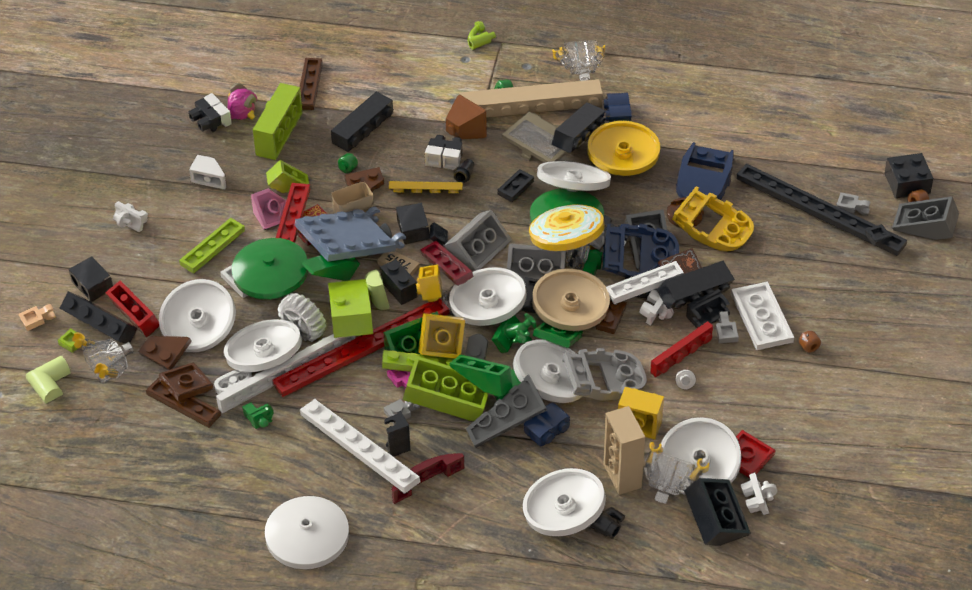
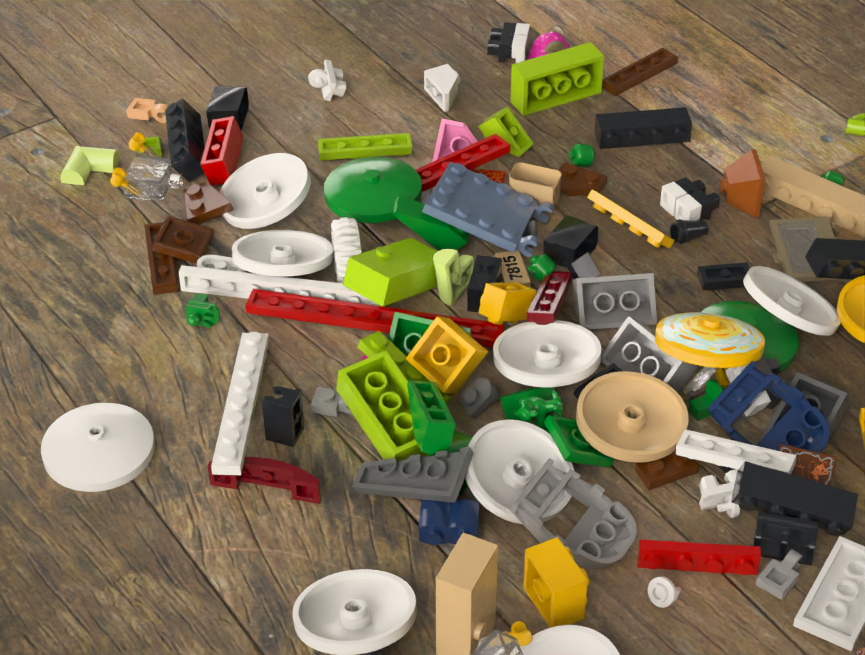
camera: 45 degrees right, 5 degrees down
(415, 249) = (541, 266): none -> green piece

